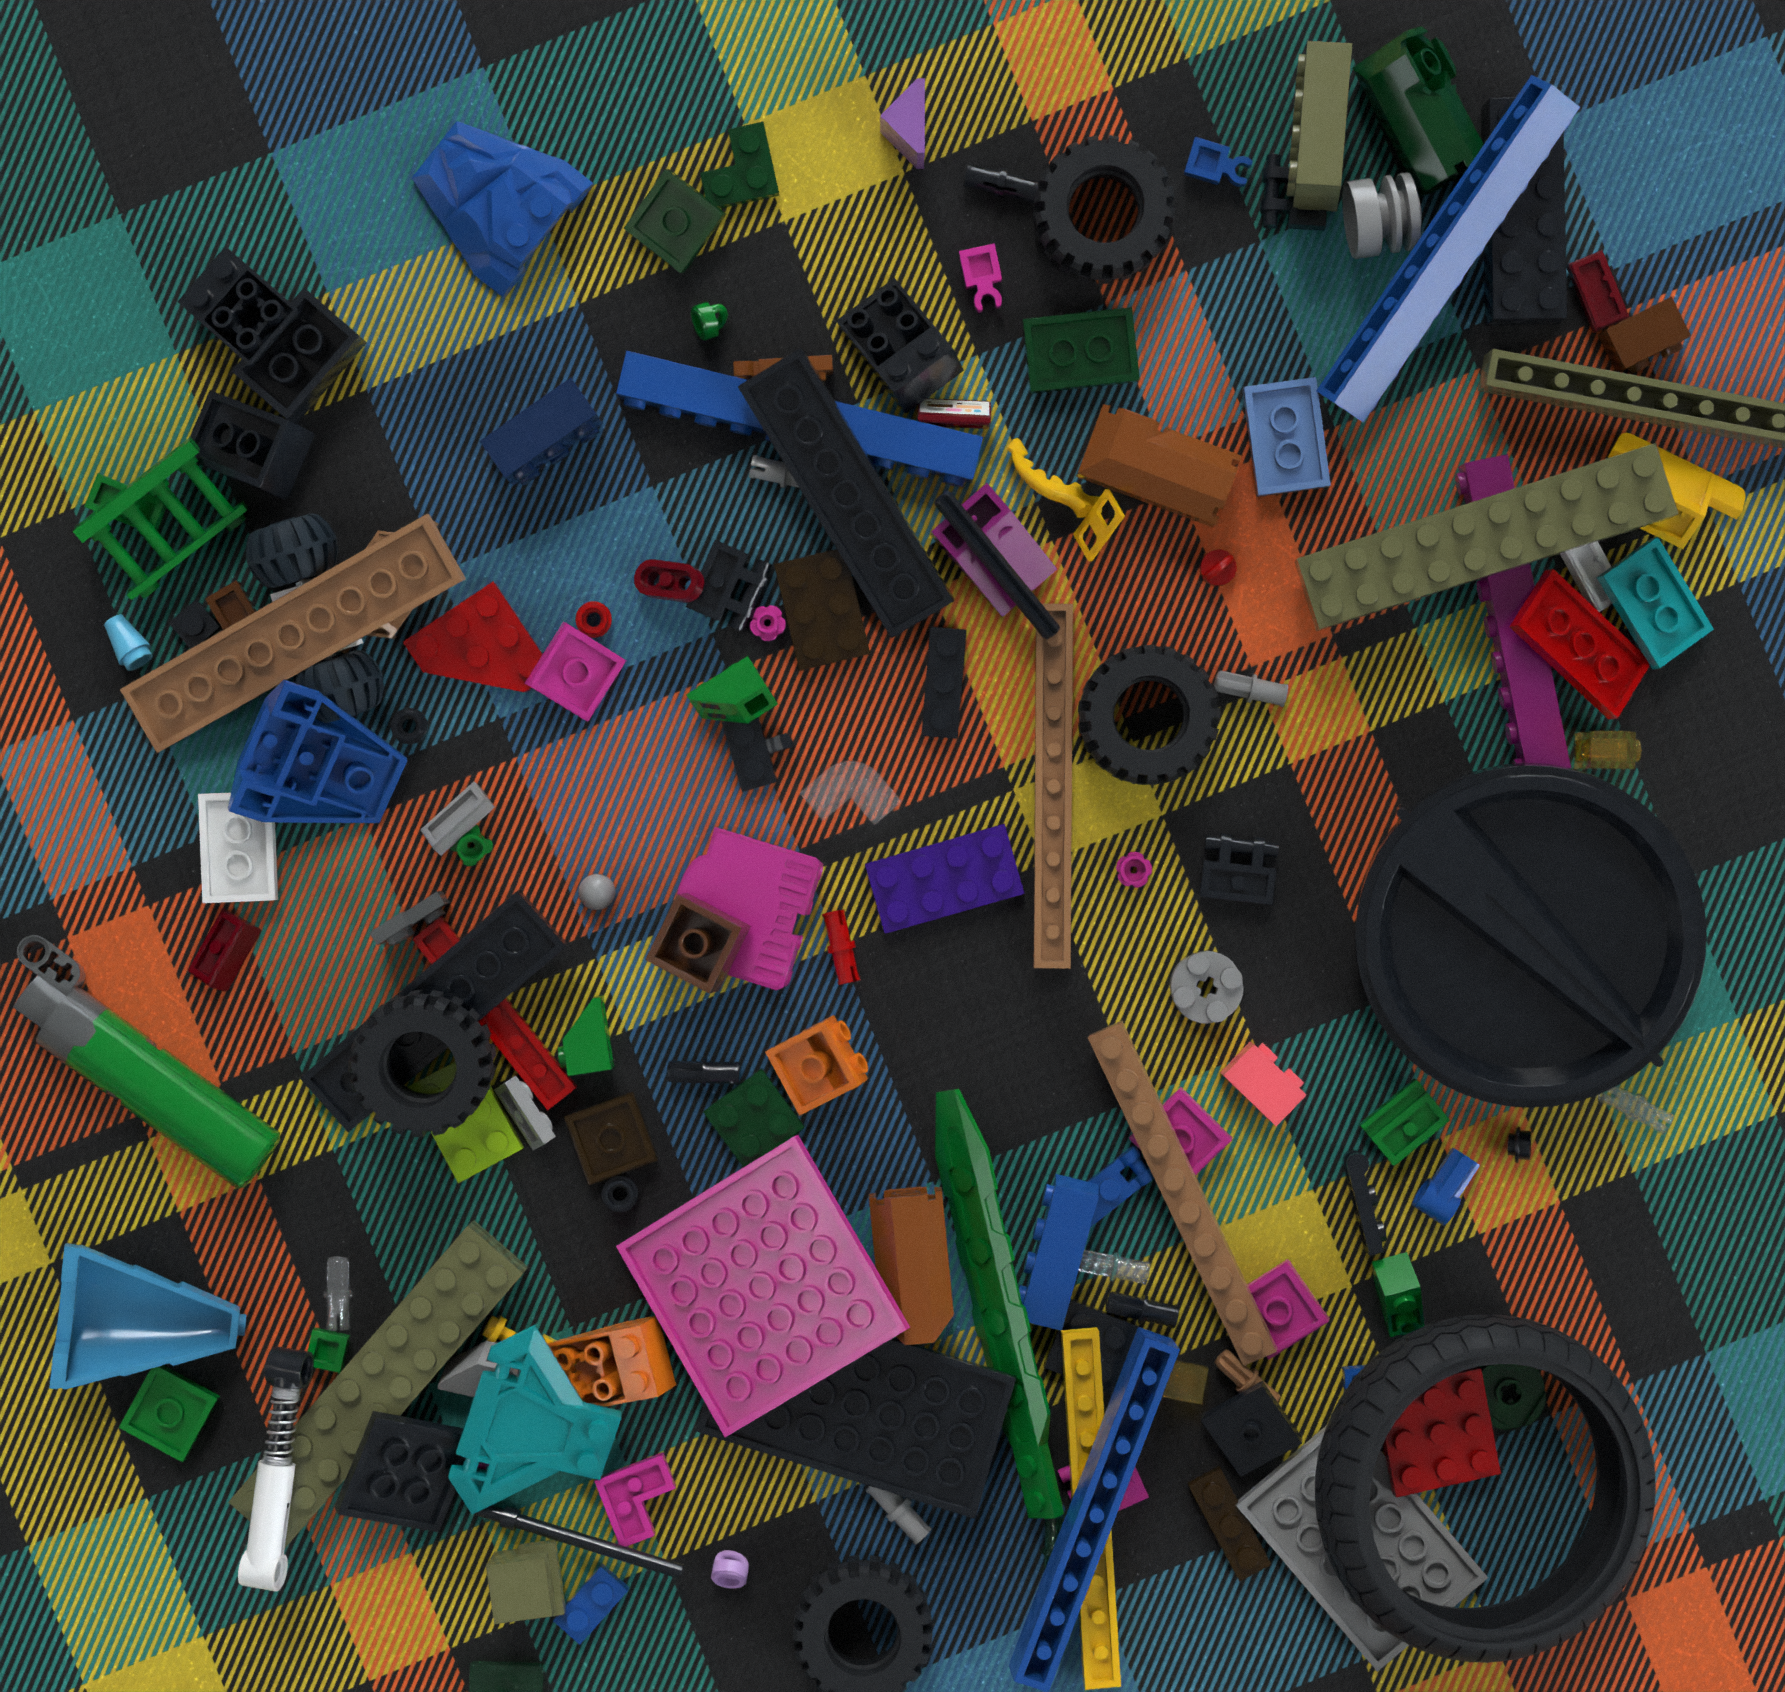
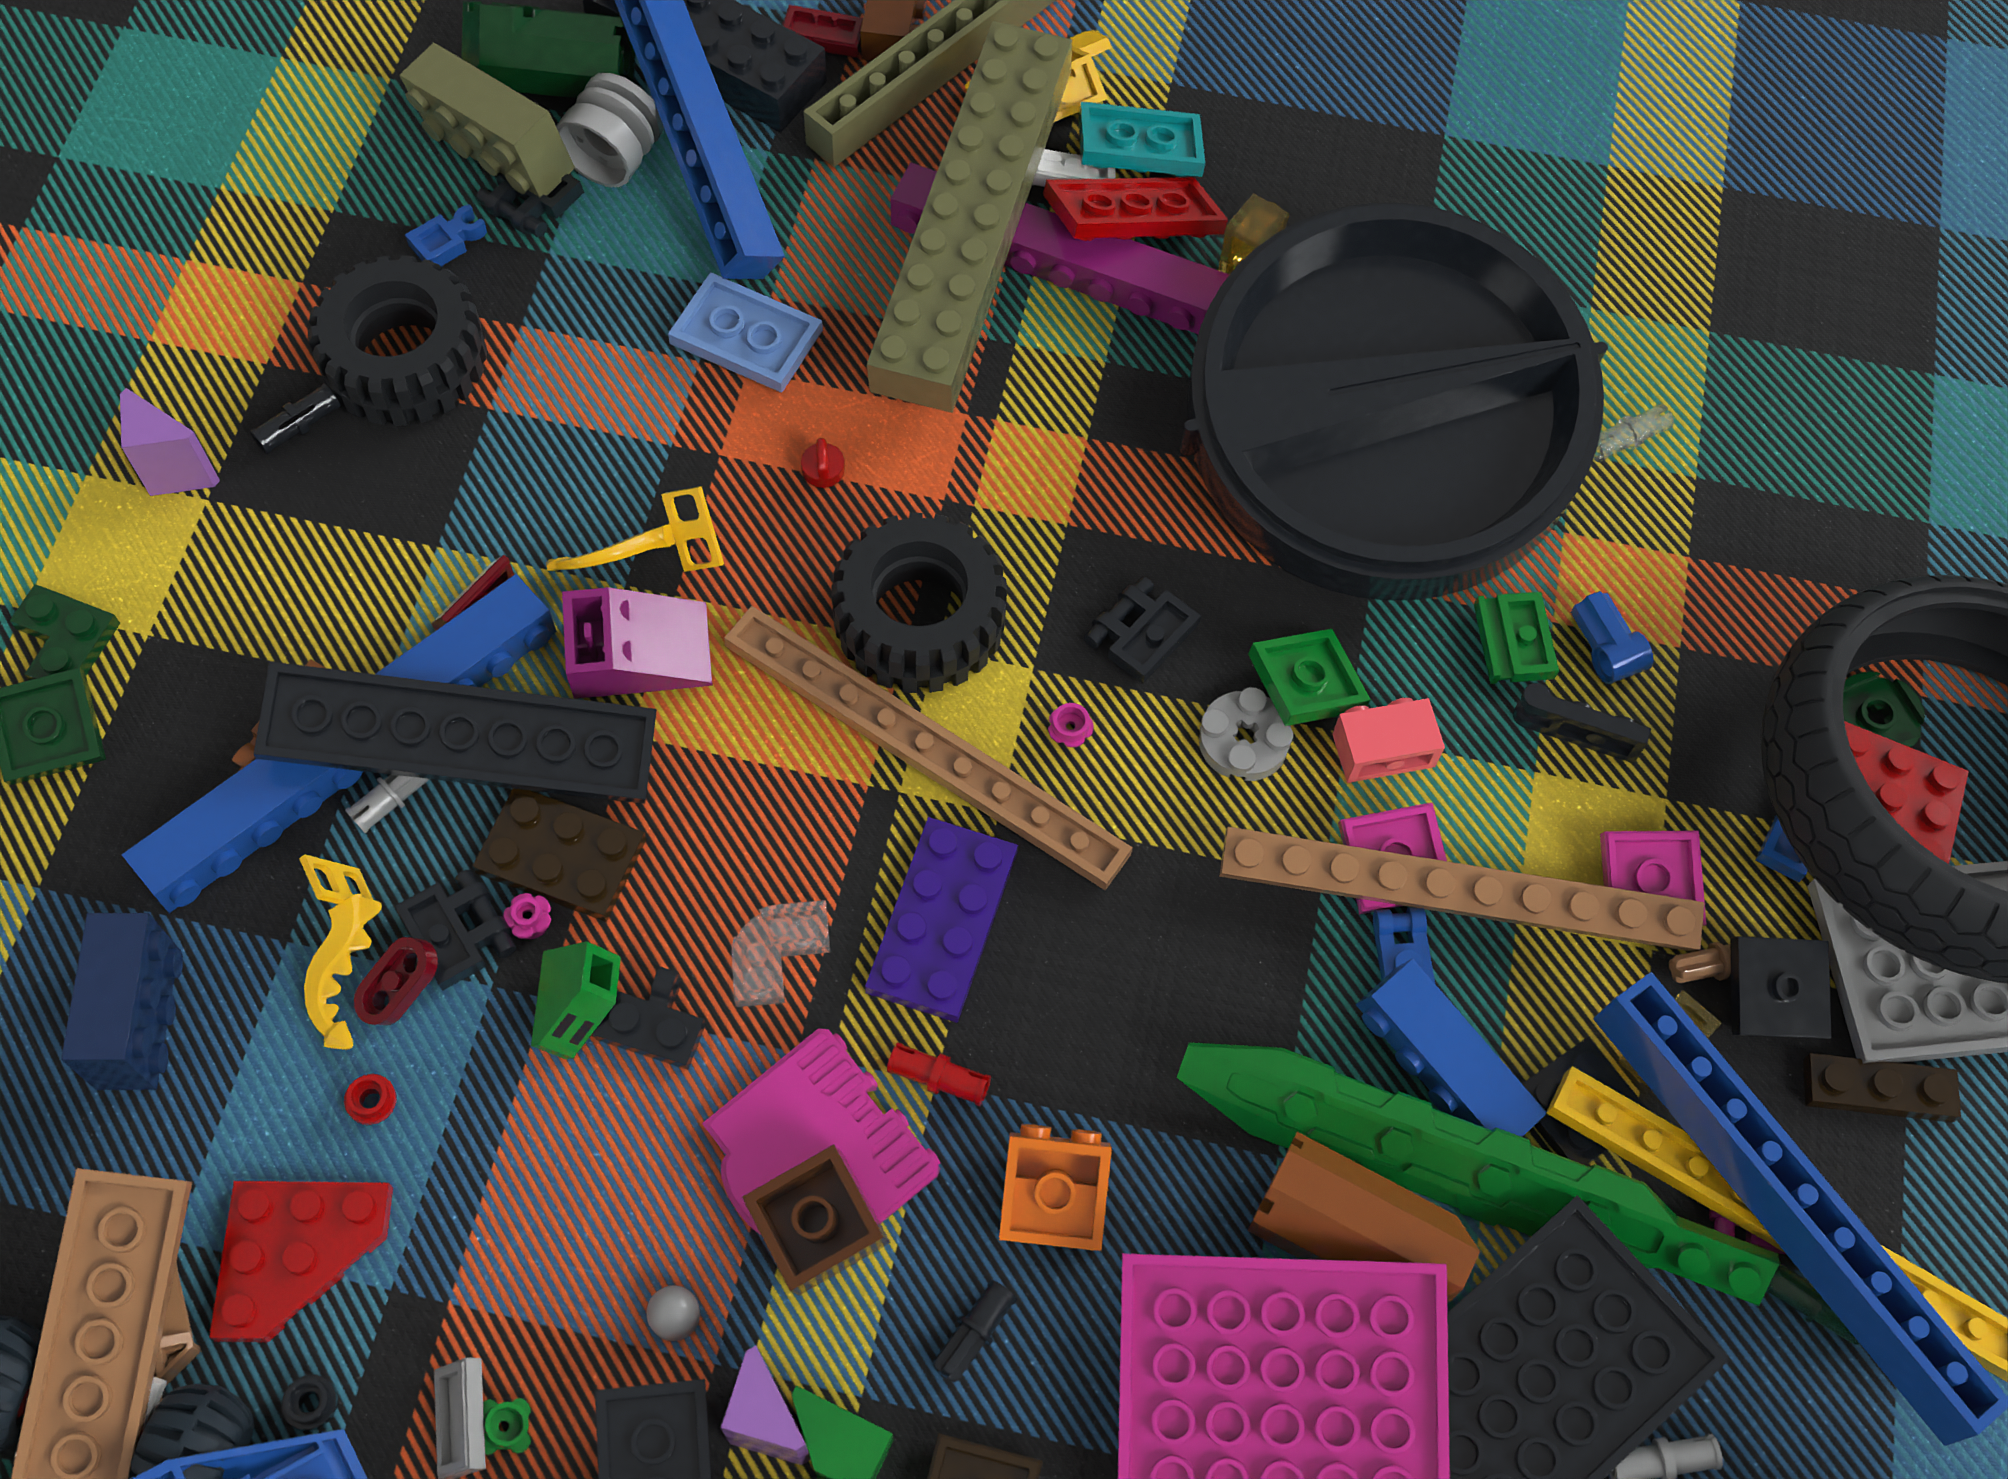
camera: 55 degrees left, 25 degrees down
(570, 991) = (759, 1416): none -> medium lavender slope
(575, 671) = (407, 1156): dark pink plate -> none
(673, 527) = (334, 953): none -> yellow piece
(705, 321) = (169, 762): green tile -> none
(753, 1118) = (1069, 1311): dark green plate -> none
(900, 345) = (365, 599): black slope -> none
(943, 682) = (734, 784): black plate -> none
(981, 270) = (360, 484): dark pink plate -> none
(996, 564) = (650, 633): black axle -> none
(1081, 350) = (512, 449): dark green plate -> none
(1115, 1267) = (1503, 1017): clear axle -> none
(1142, 1309) = (1570, 1019): black axle -> none
(1158, 466) = (677, 438): dark orange brick -> none
(1251, 688) = (972, 500): light grey axle -> none
(1274, 1004) = (1308, 676): none -> green plate
(1398, 1294) = (1705, 749): green slope -> none
(1520, 1144) = (1607, 549): black plate -> none

